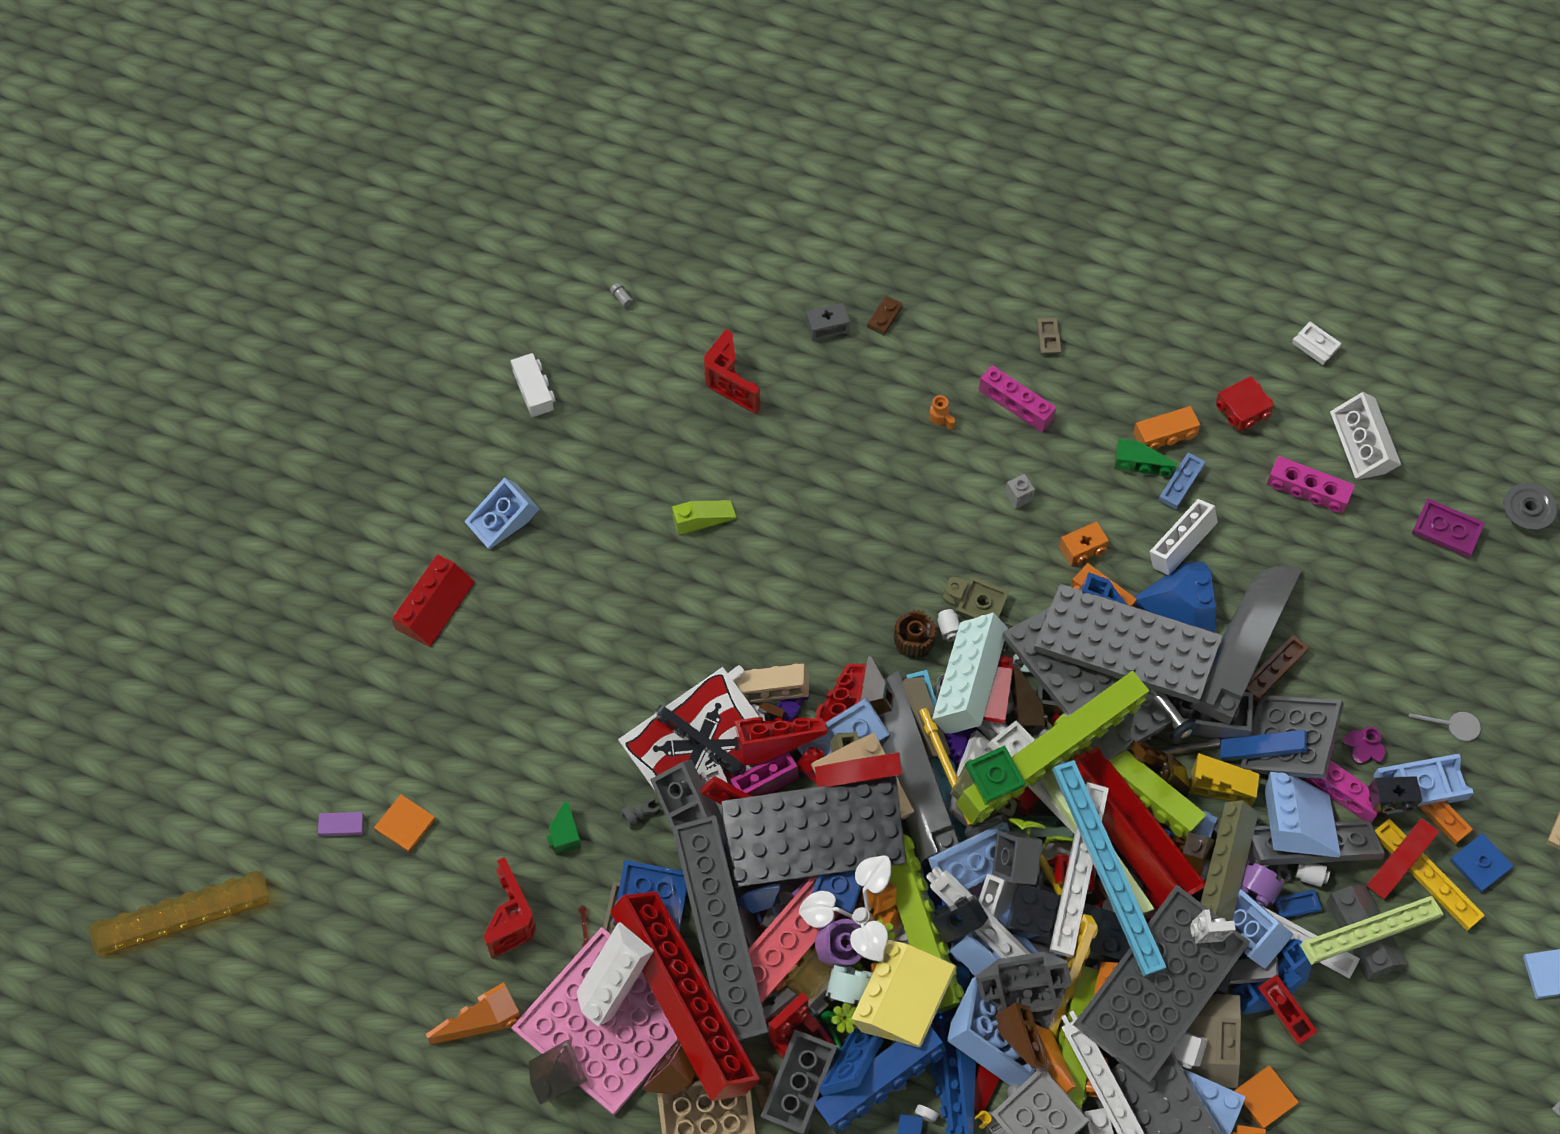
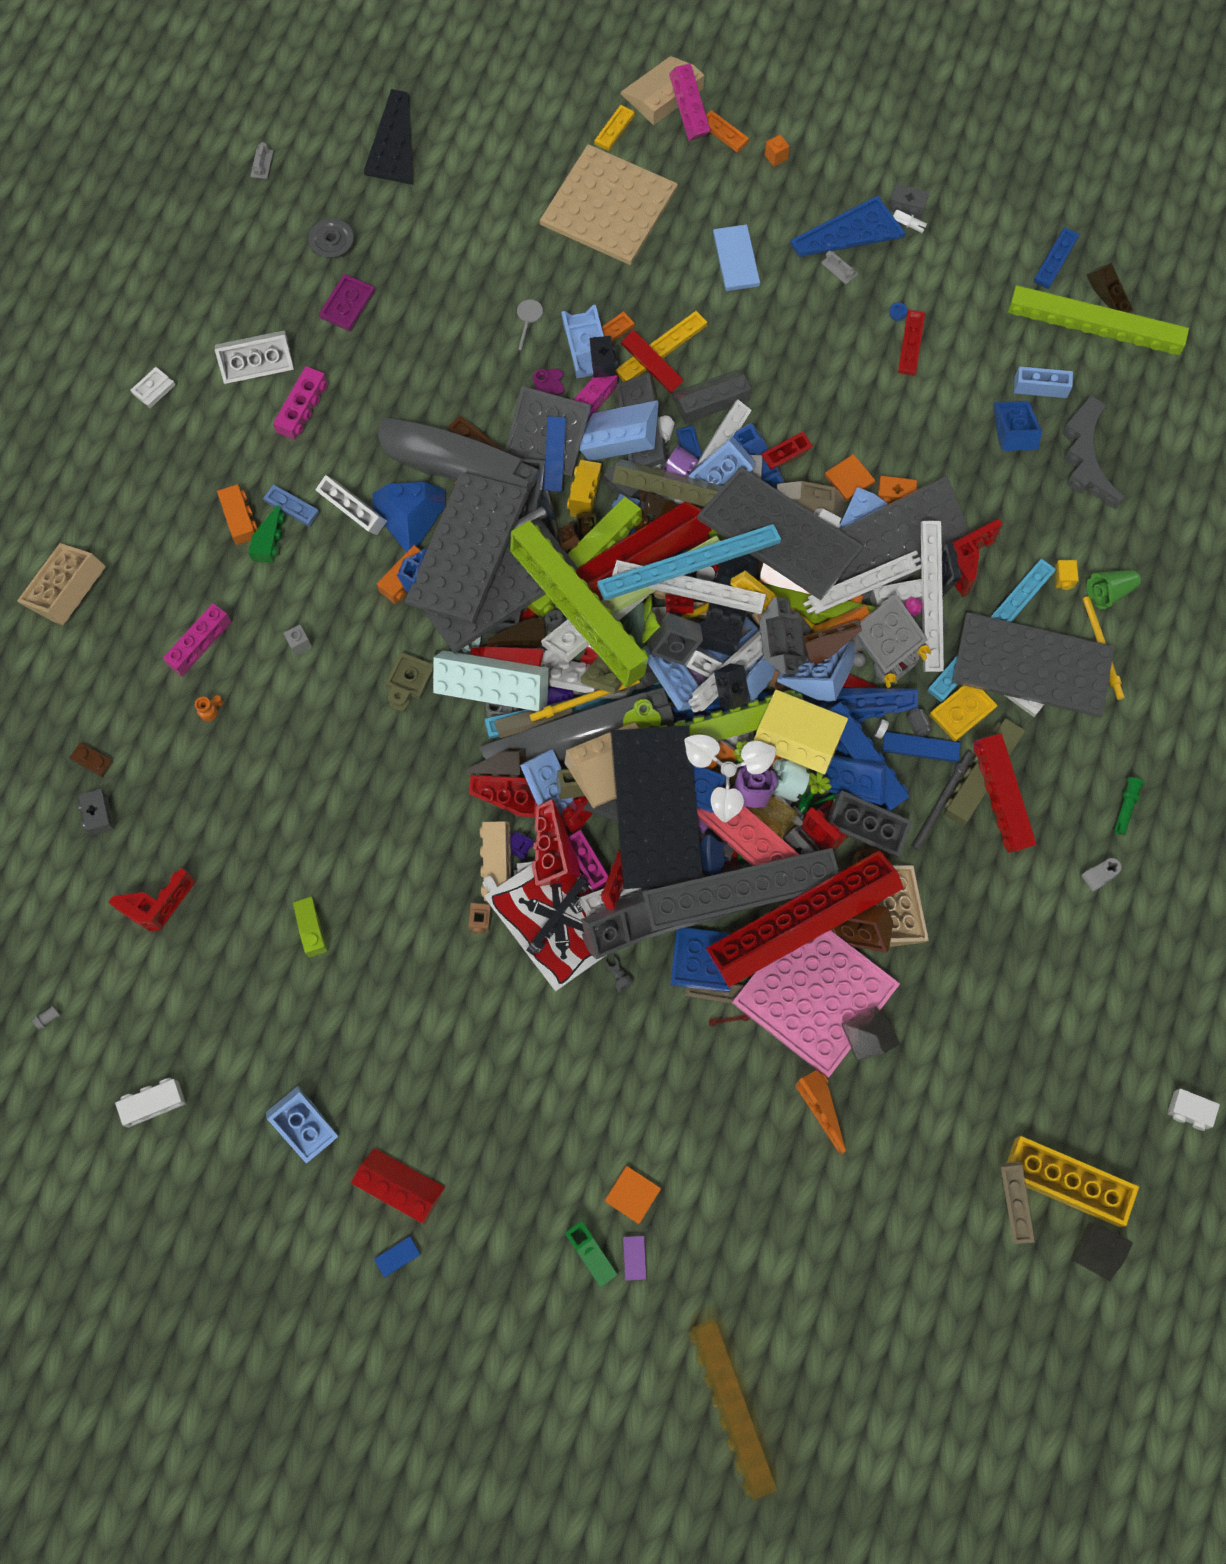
camera: 90 degrees left, 10 degrees up
(349, 777) = (591, 1254): none -> green slope
(365, 603) = (397, 1257): none -> blue tile
(507, 928) = (740, 1088): red bracket -> none
(563, 831) = (639, 1042): green slope -> none
(612, 975) = (789, 981): white slope -> none
(701, 665) = (480, 927): none -> medium nougat window
(771, 710) = (525, 853): reddish brown tile -> none
(859, 770) = (607, 761): red slope -> none
(914, 634) = (443, 742): reddish brown brick -> none
(919, 821) = (644, 718): none -> lime plate
(948, 624) = (433, 704): white brick -> none
(995, 774) = (614, 643): green tile -> none
(1048, 335) = (126, 613): dark tan slope -> none
(1076, 276) = (62, 583): none -> tan slope
(1084, 544) = (357, 597): orange brick -> none
(1210, 931) = (740, 488): white bracket -> none
(1244, 404) = (216, 448): red brick -> none
(1371, 930) = (719, 385): yellowish green tile -> none
(1481, 863) = (649, 310): blue plate -> none

